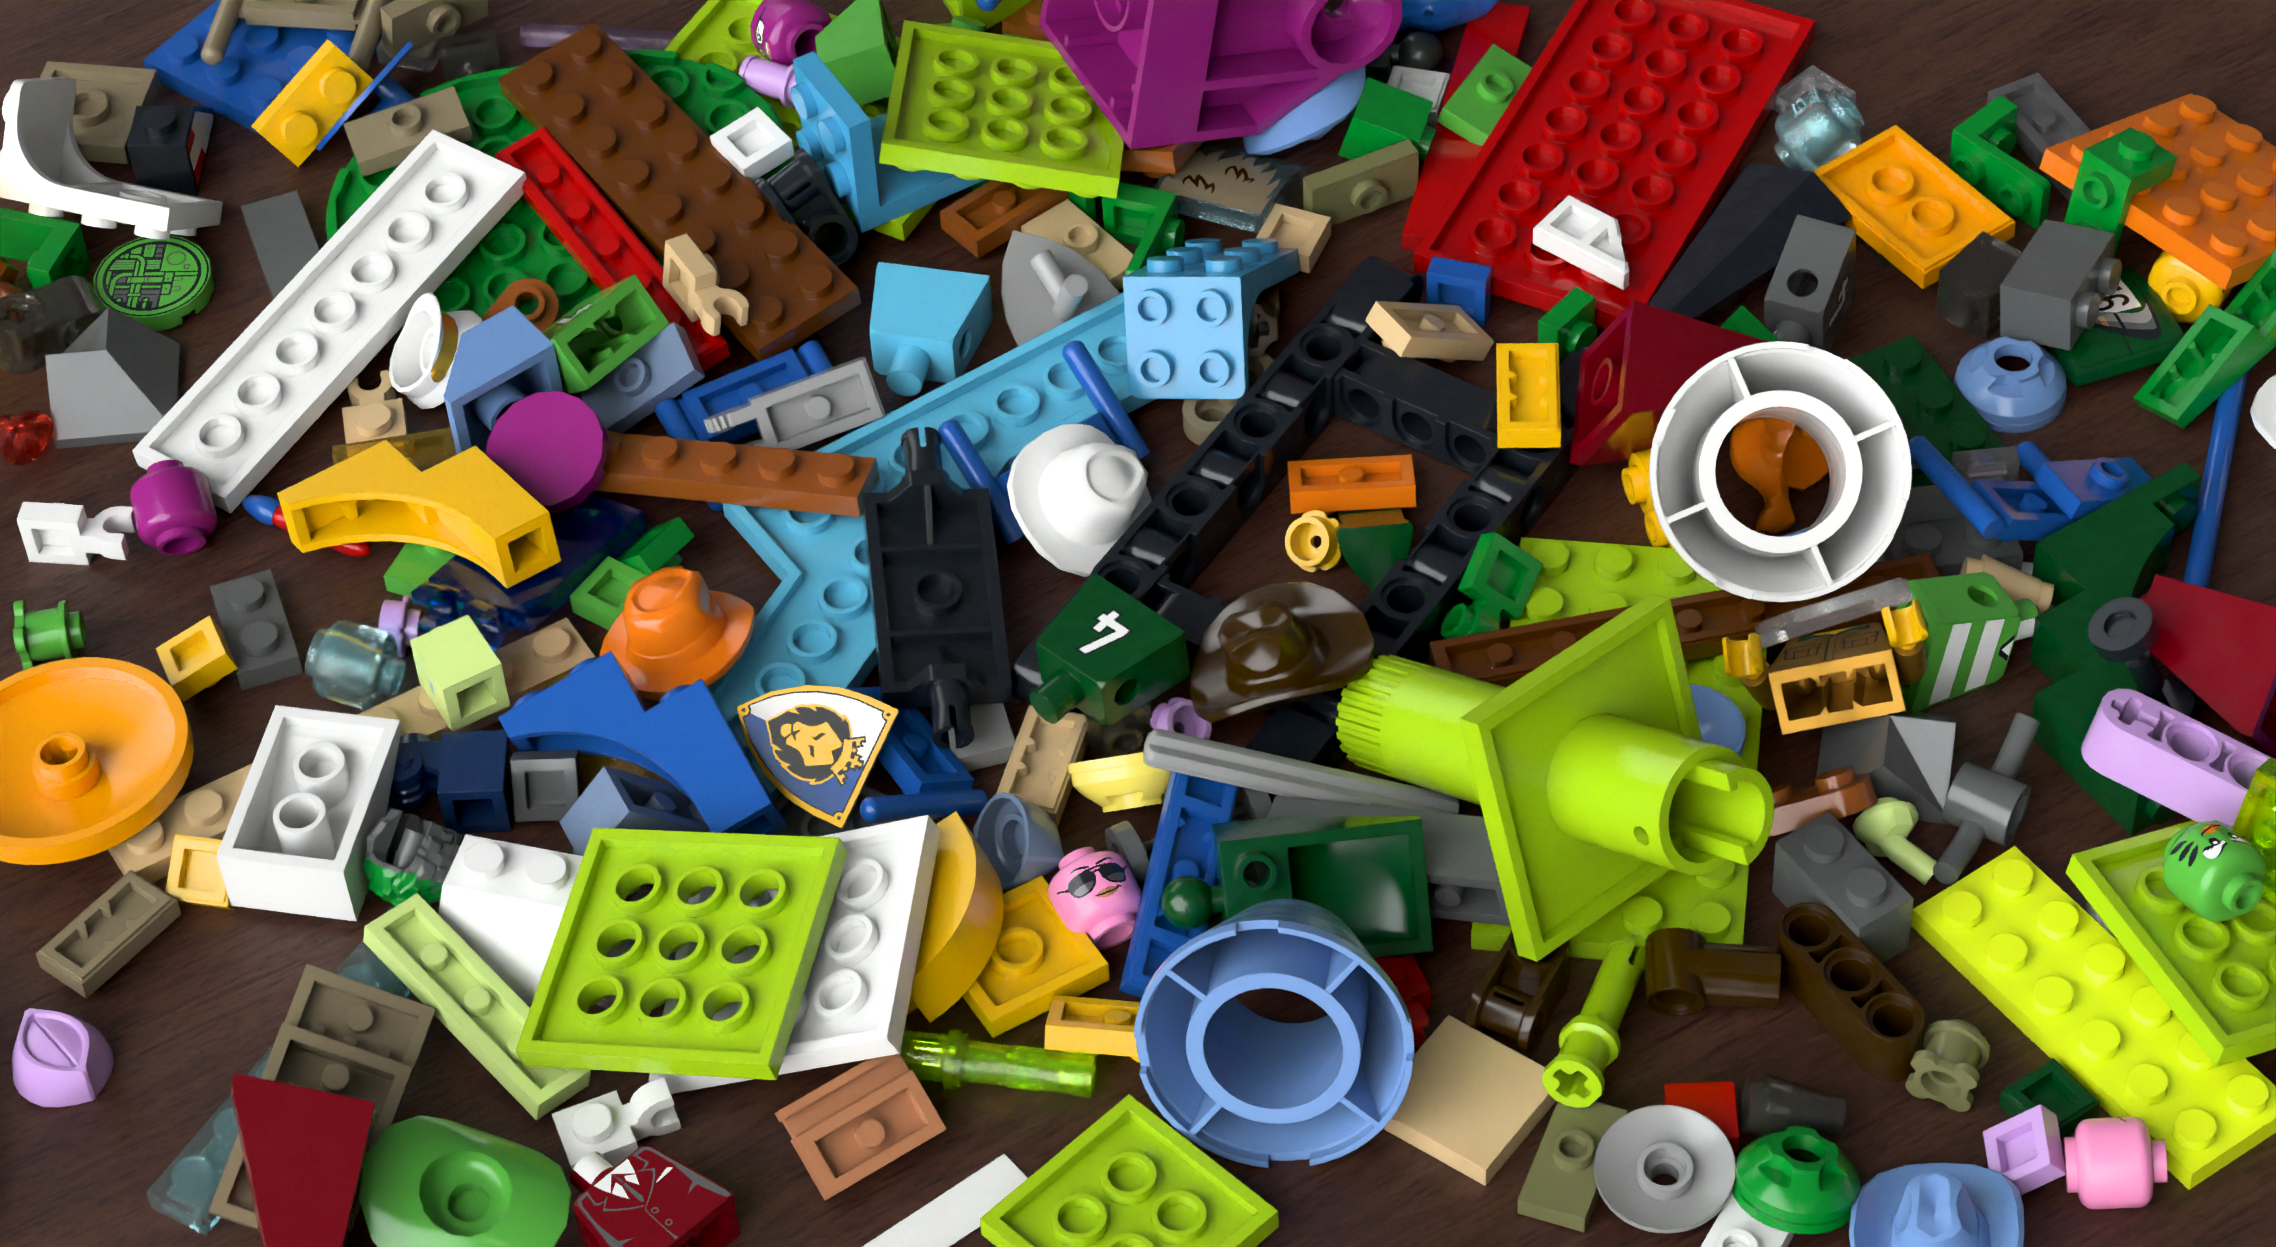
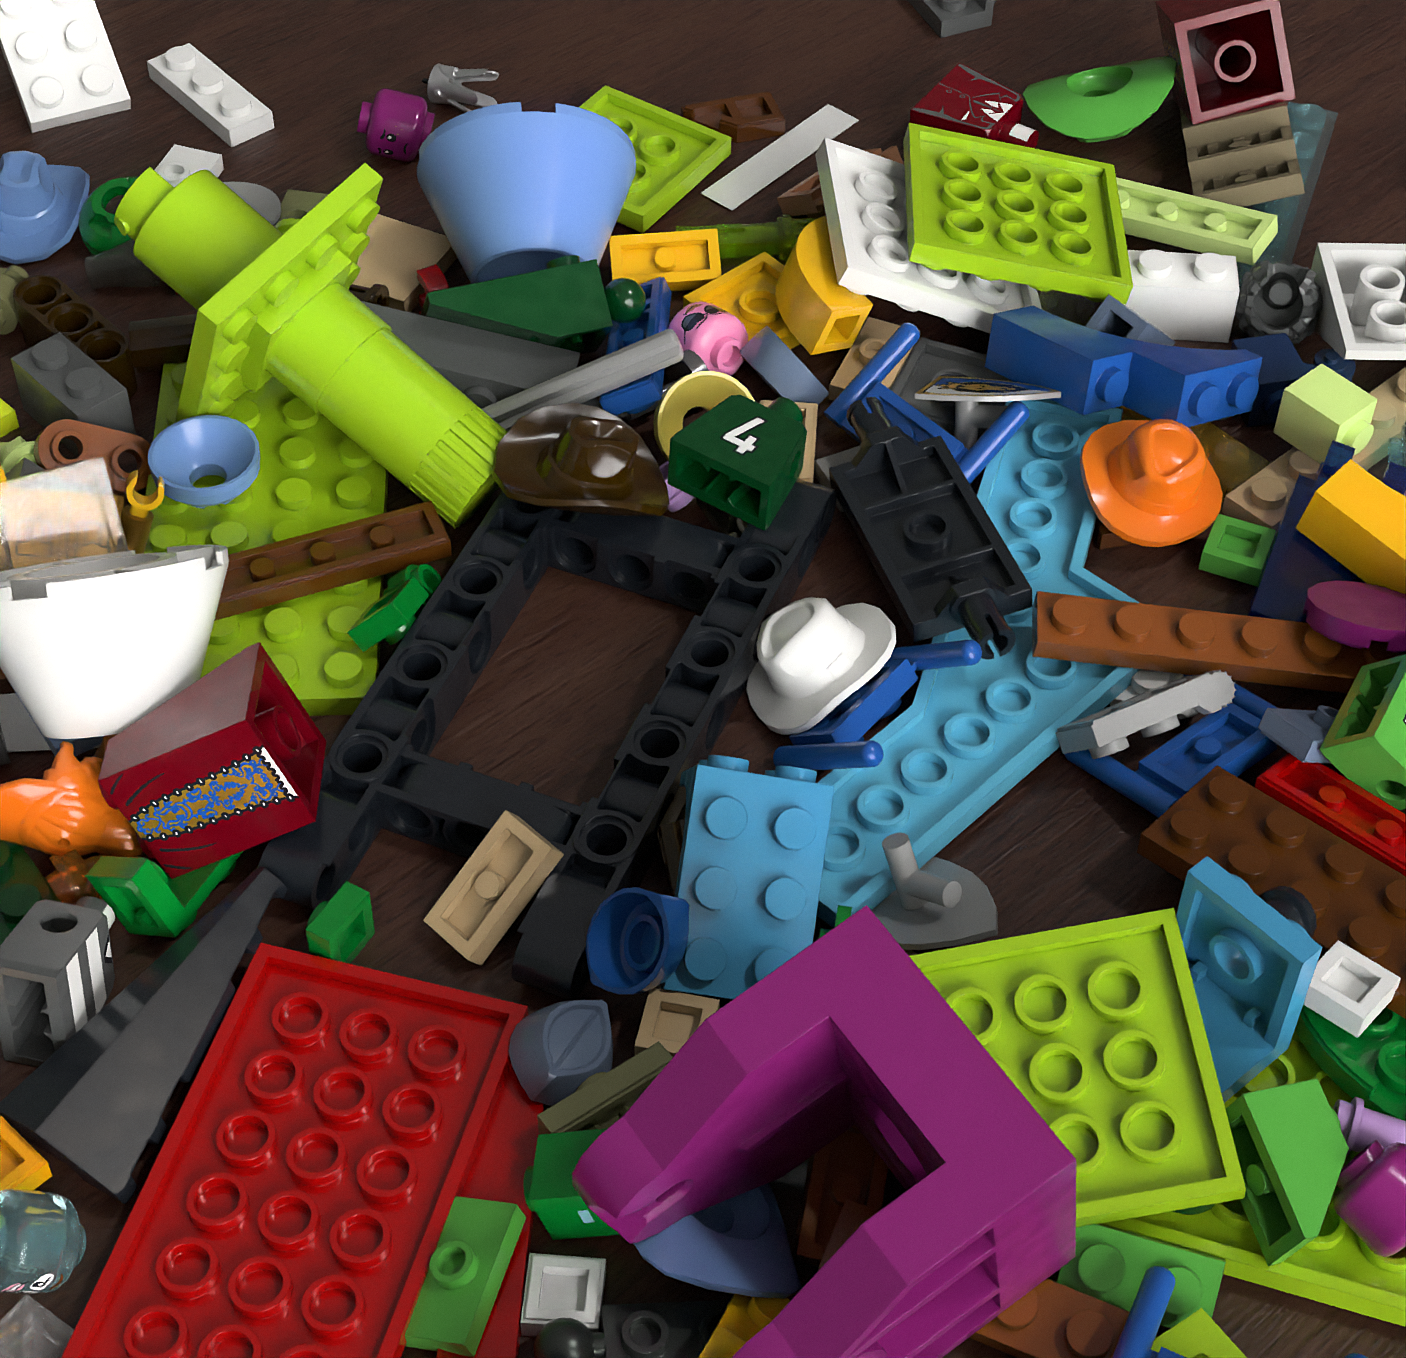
camera: 165 degrees right, 0 degrees up
(658, 547) = (1223, 582): green plate -> none
(694, 284) = (1314, 785): tan plate -> none
(926, 324) = (1064, 859): medium azure torso -> none
(1300, 541) = (581, 668): yellow plate -> none
(1313, 247) = (636, 940): none -> blue hat
(1351, 484) = (554, 728): orange plate -> none
(1373, 541) = (525, 677): dark green tile -> none
(1389, 220) = (561, 1048): none -> sand blue hat
(1461, 285) = (469, 964): blue plate -> none
(1528, 395) = (371, 769): yellow plate -> none
(1585, 240) = (323, 1030): white tile -> none

